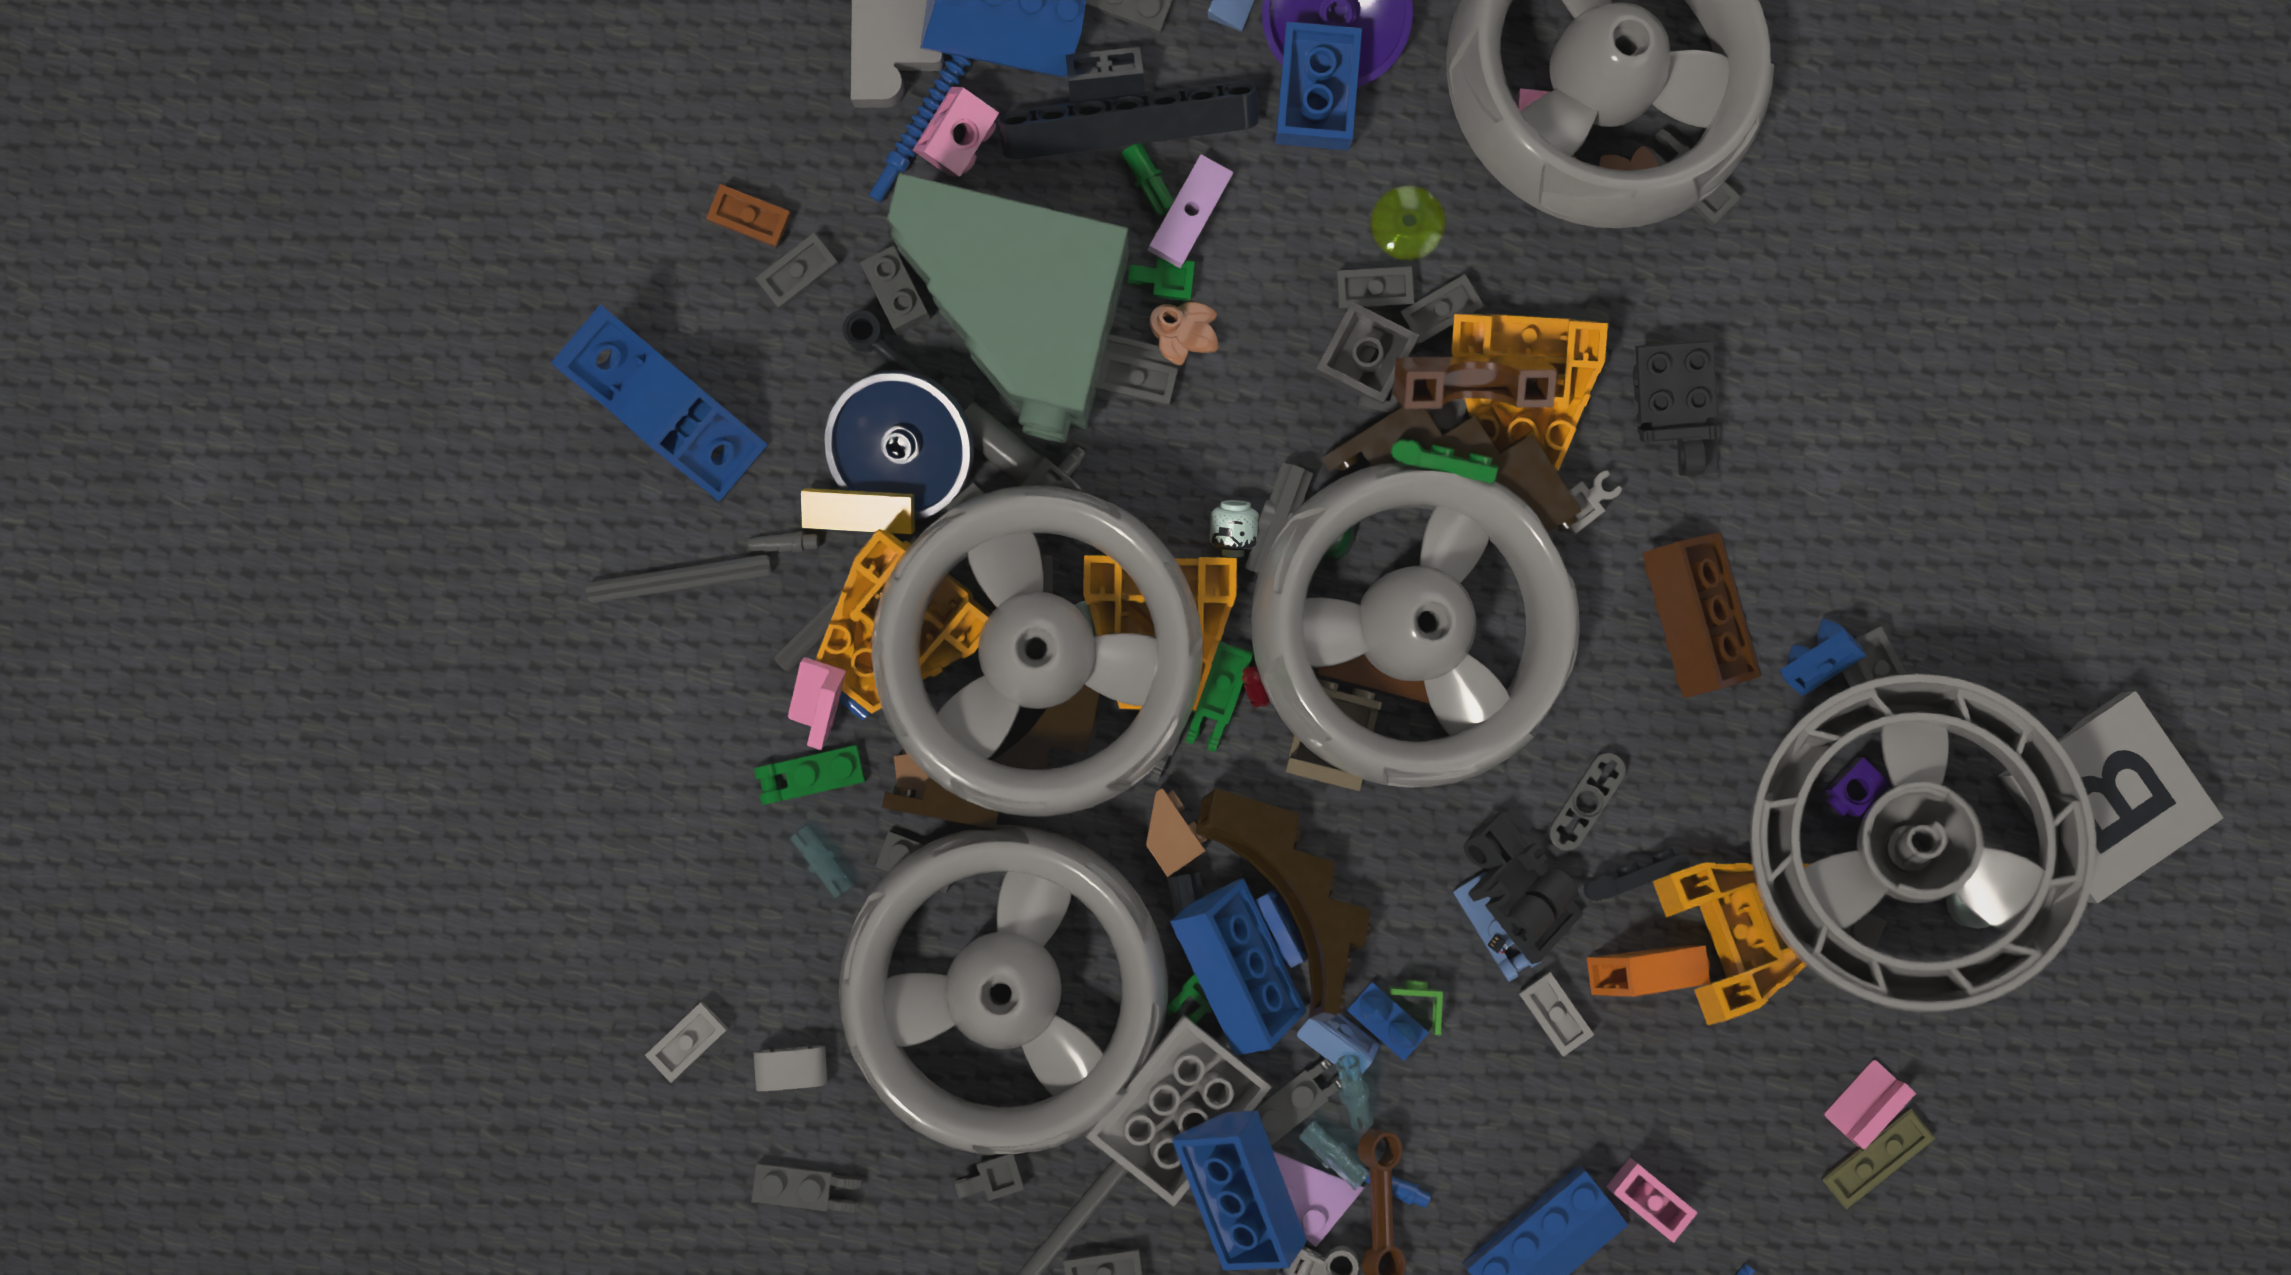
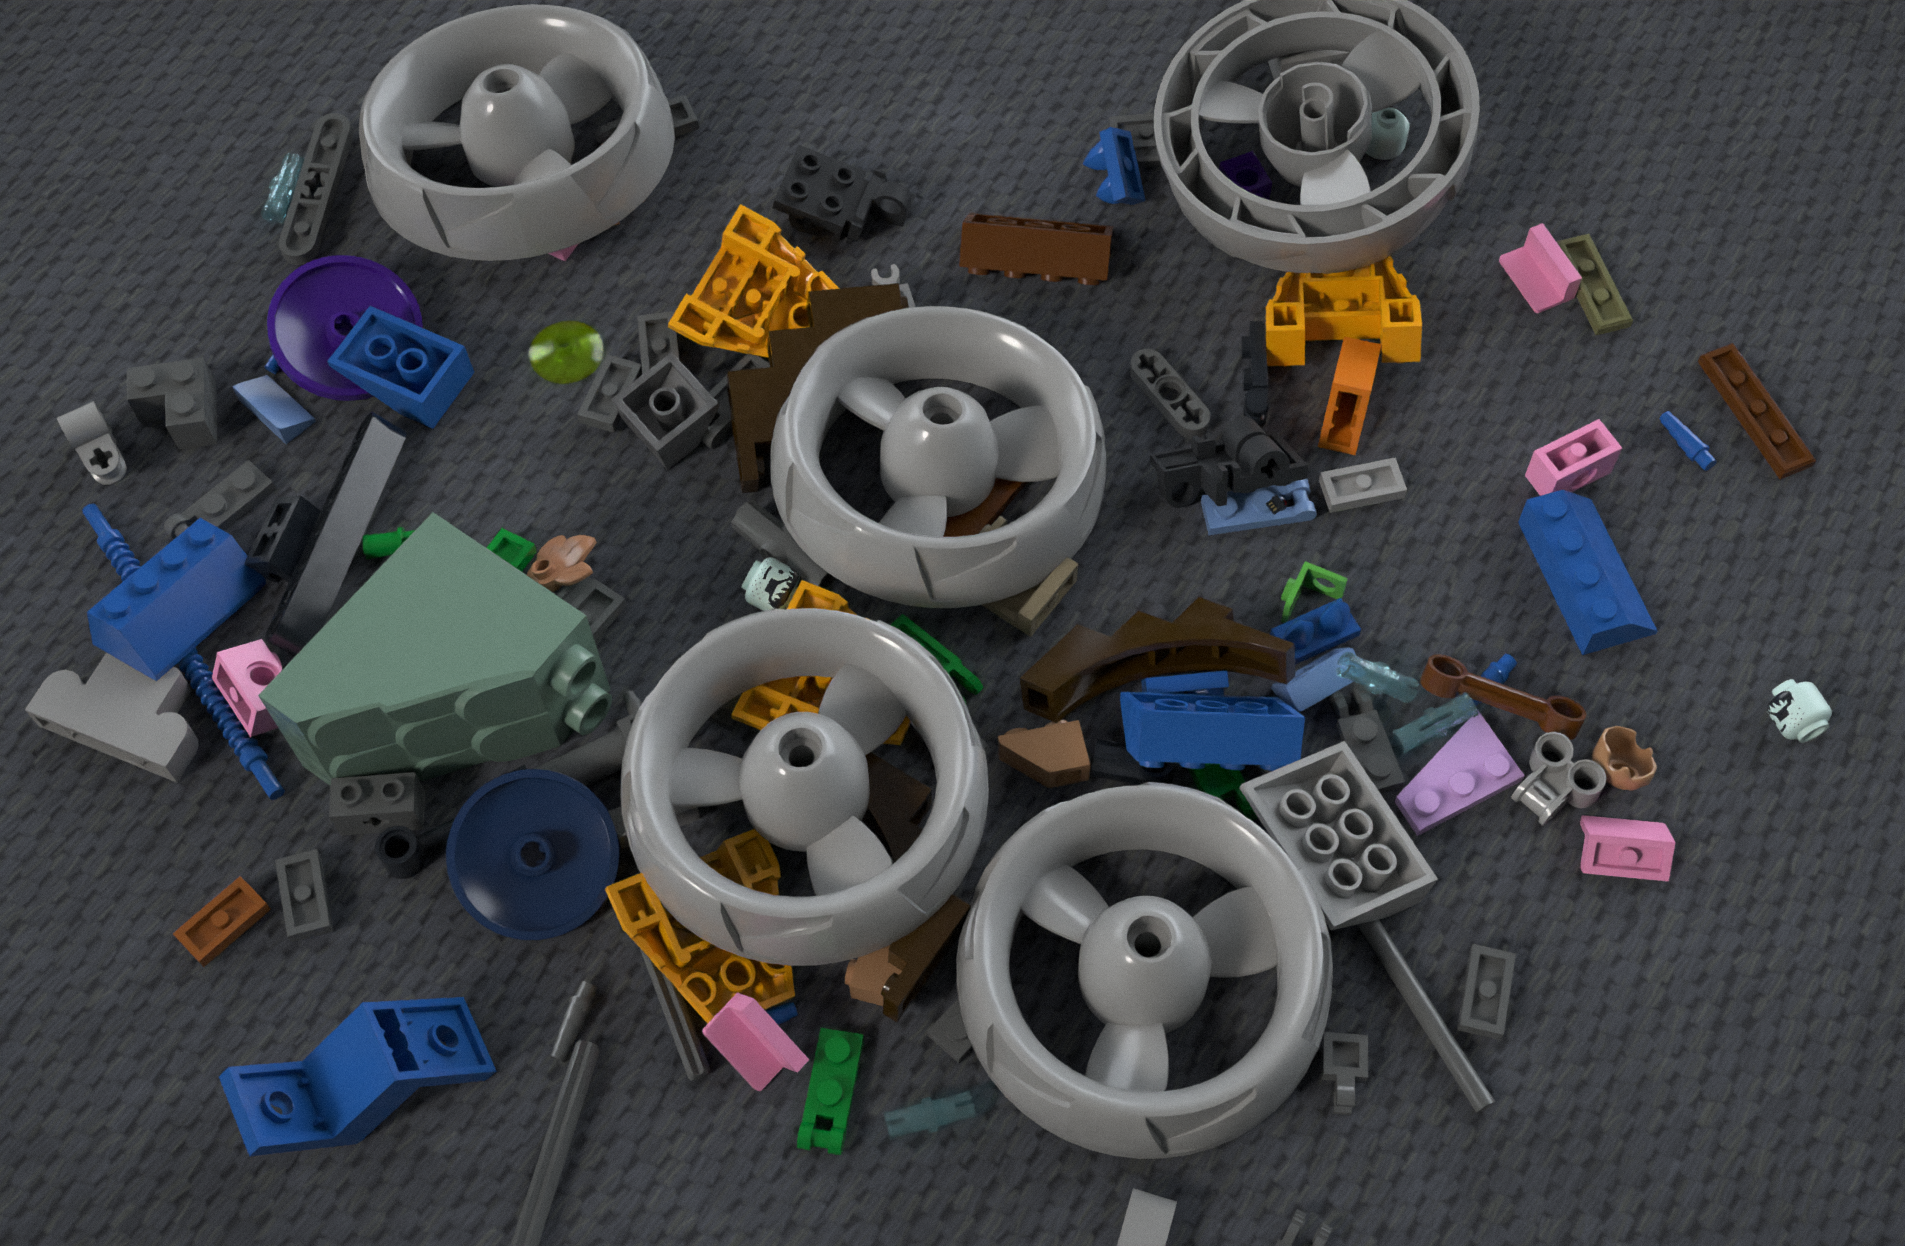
camera: 70 degrees left, 25 degrees down
(857, 510) = (576, 929): tile -> none
(1200, 196) = (439, 494): lavender tile -> none
(1241, 1192) = (1444, 808): blue slope -> none
(1254, 687) = (935, 622): dark red piece -> none
(1437, 380) = (736, 319): reddish brown arch -> none
(1442, 460) = (778, 388): green hinge -> none

